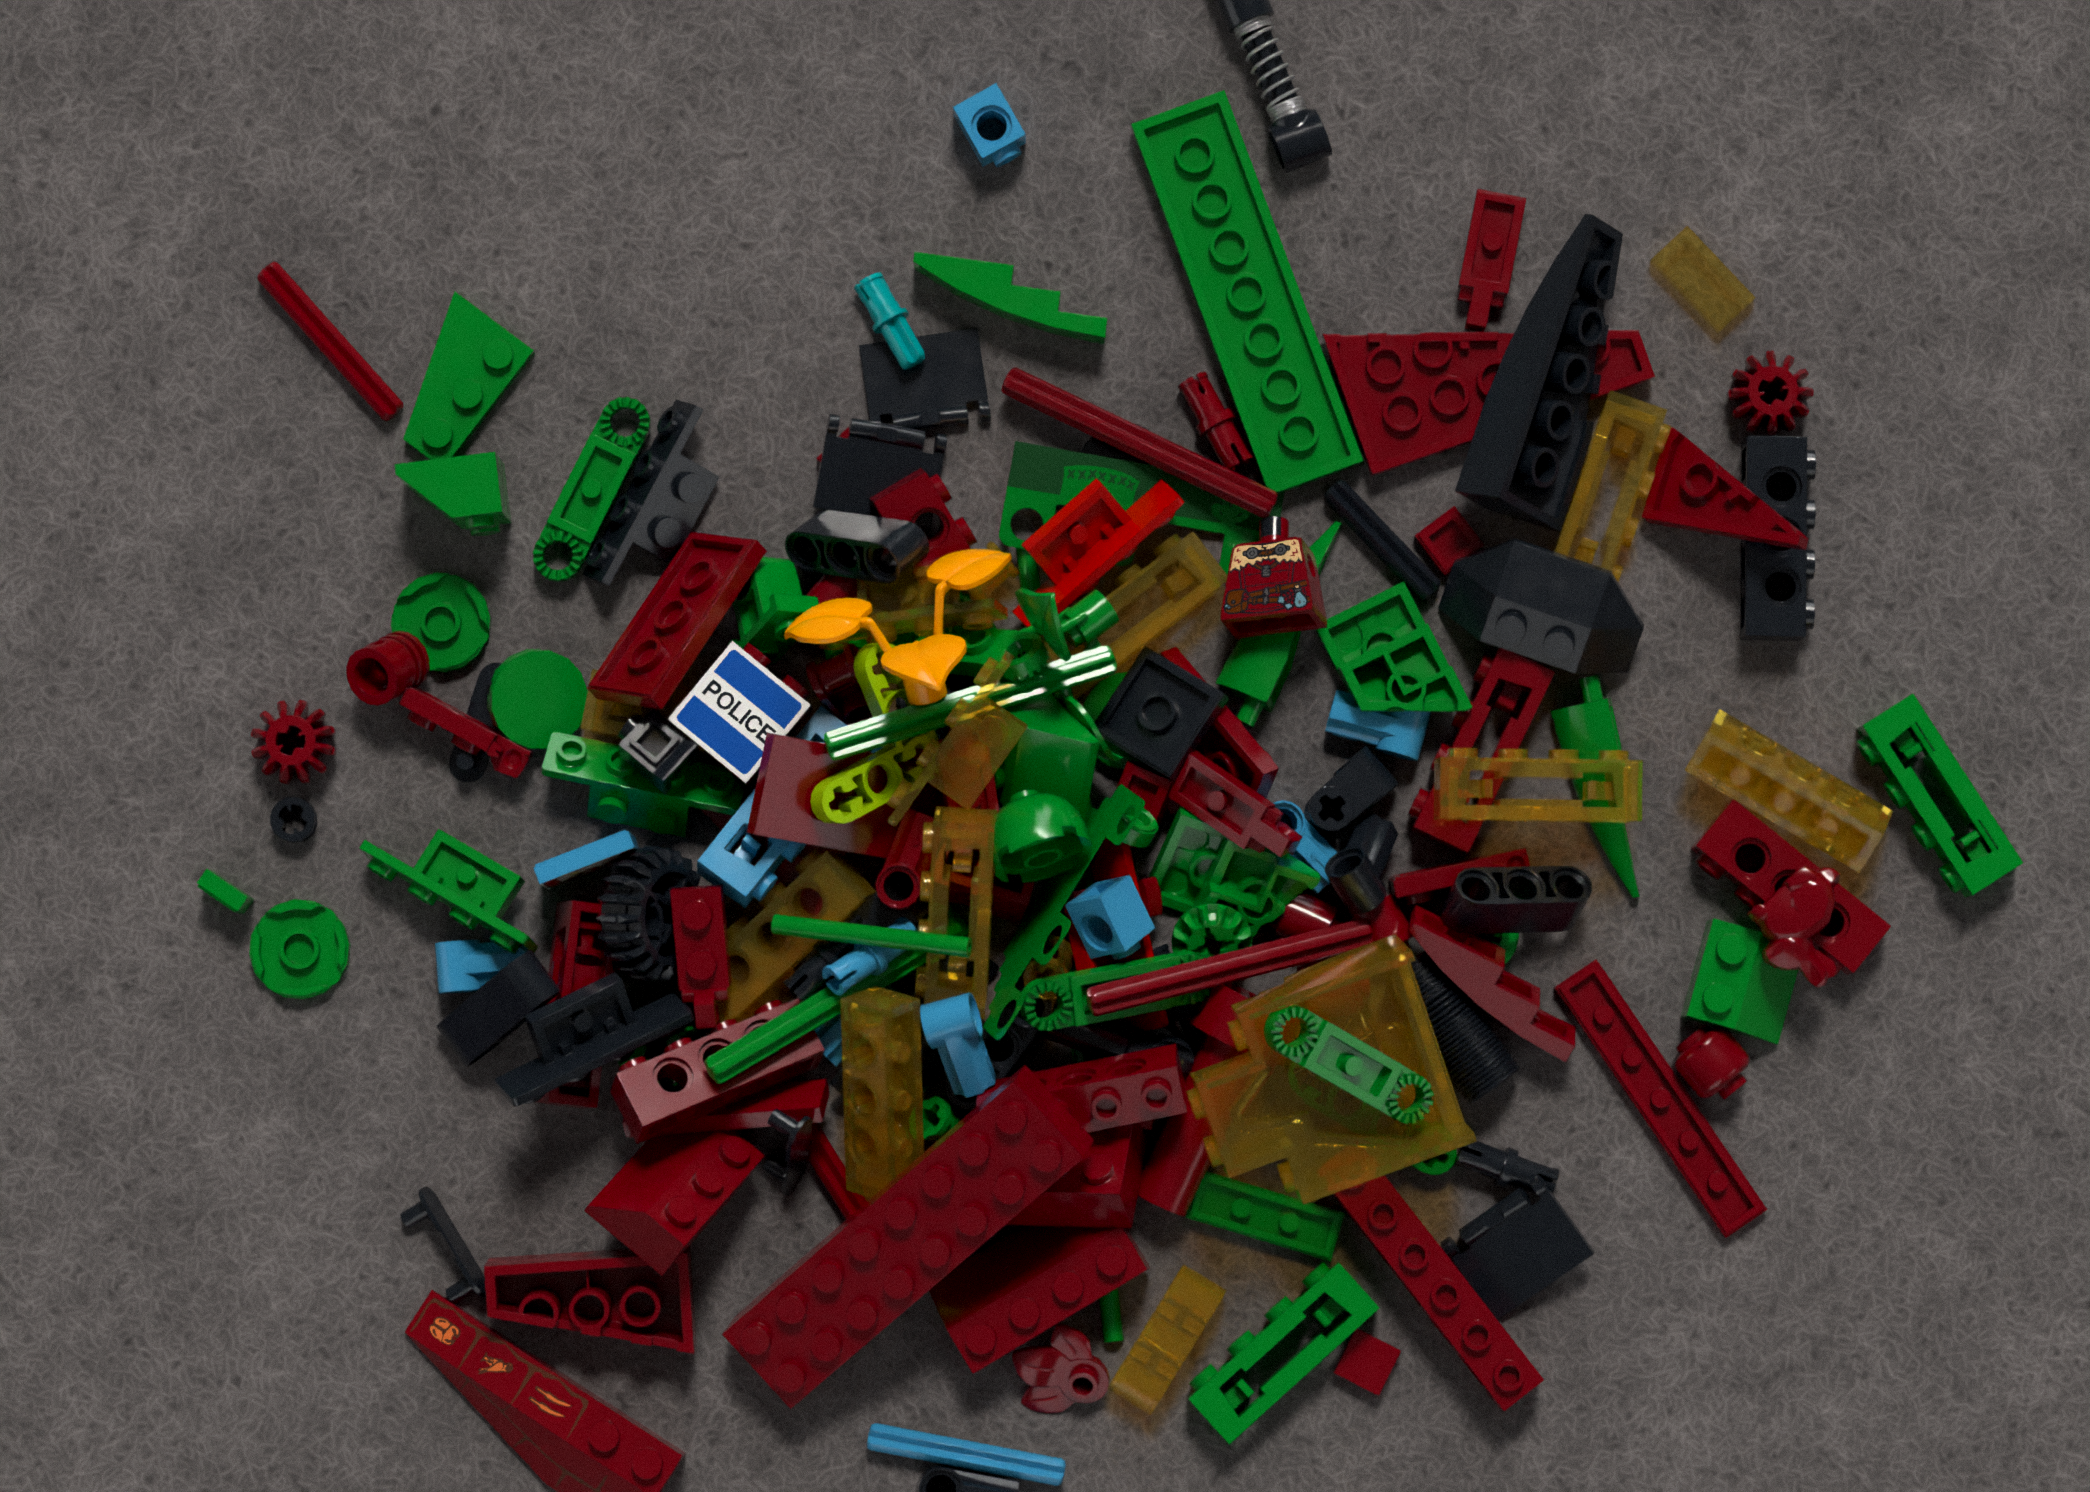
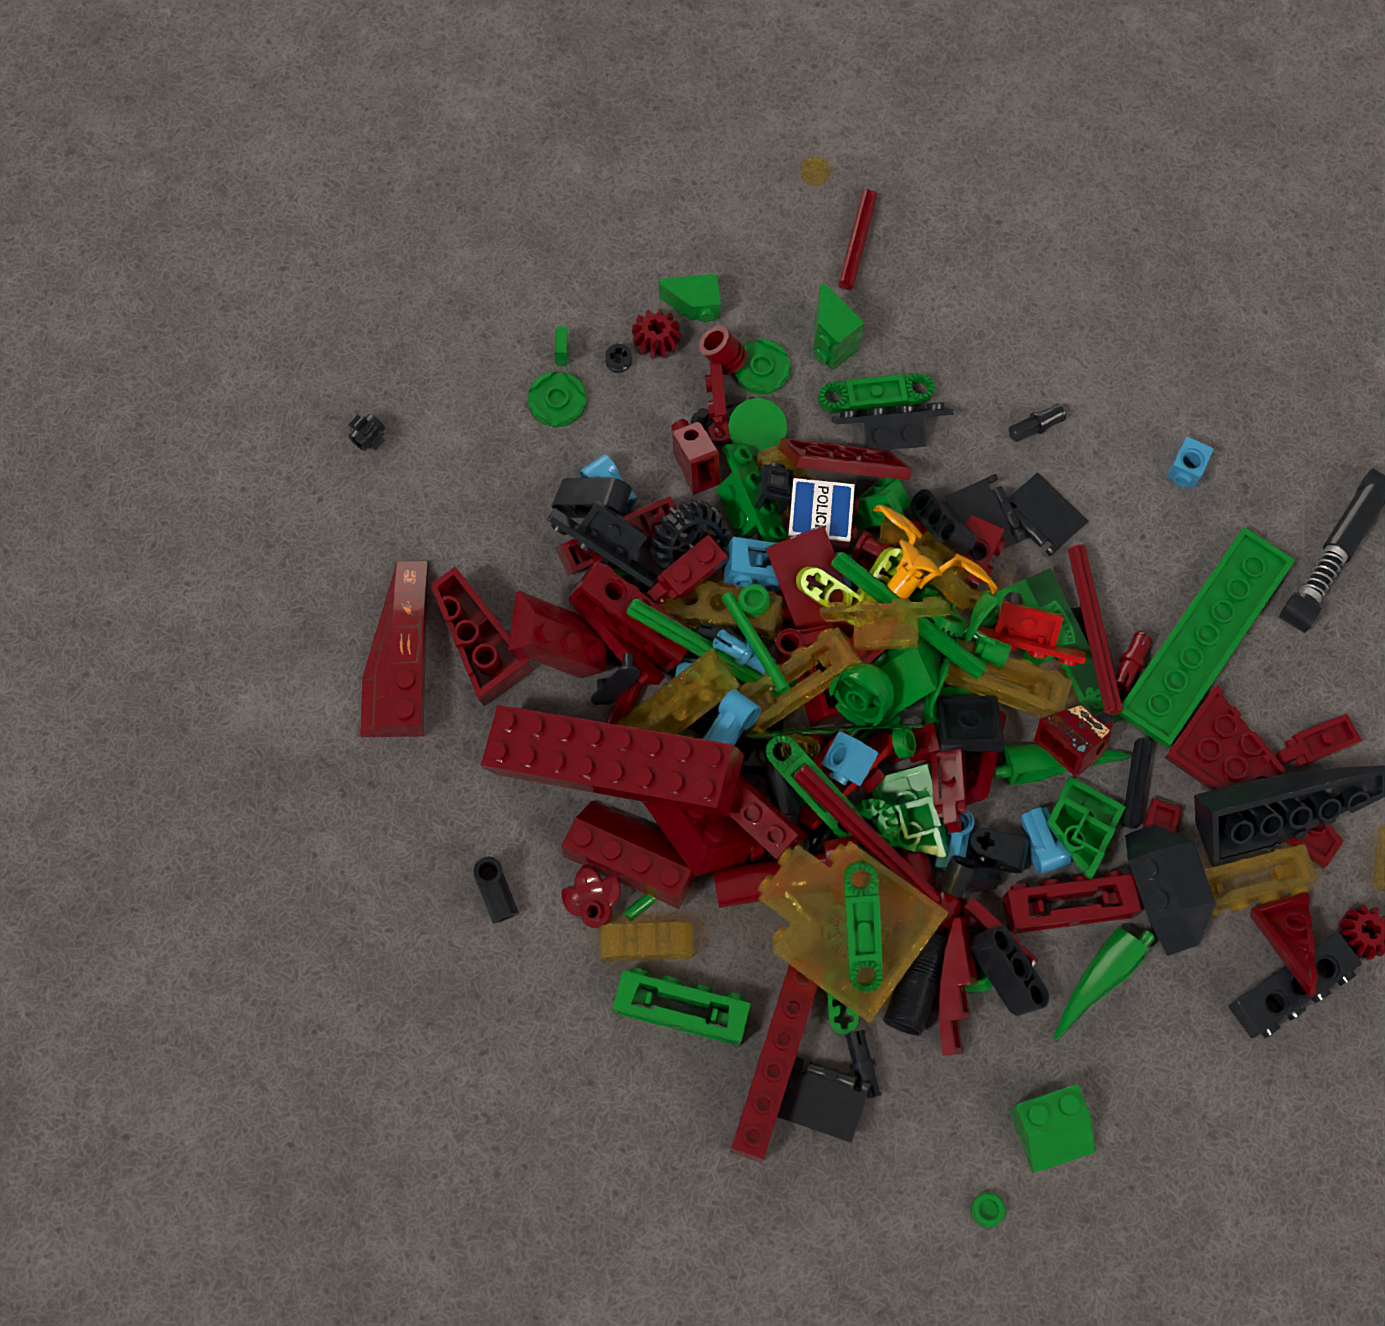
camera: 50 degrees right, 15 degrees down
(175, 324) = (815, 171): none -> clear yellow tile
(181, 1256) = (366, 432): none -> black gear
(270, 648) = (692, 296): none -> green slope
(431, 1207) = (468, 535): black piece -> none
(461, 879) = (643, 446): green bracket -> none
(464, 380) = (889, 306): green wing -> none
(535, 820) = (695, 447): none -> dark red torso
(585, 859) = (685, 485): dark azure tile -> none
(787, 293) = (1037, 422): none -> black axle
(807, 893) = (754, 600): none -> green tile
(890, 320) = (1061, 476): teal axle -> none
(966, 1454) = (515, 877): dark azure axle -> none
(992, 289) = (1114, 516): green slope -> none
(1266, 1216) = (747, 953): green tile -> none
(1367, 1361) = (706, 1059): dark red tile -> none
(1621, 787) = (1103, 979): clear yellow brick -> none
(1660, 1098) = (957, 1128): dark red tile -> none
(1712, 1062) = (999, 1140): dark red head -> none
(1736, 827) = (1133, 1070): dark red brick -> none
(1783, 1134) = (988, 1210): none -> green tile
(1789, 790) = (1173, 1082): clear yellow brick -> none
(1794, 918) = (1111, 1127): dark red animal -> none
(1930, 826) = (1211, 1177): green brick -> none

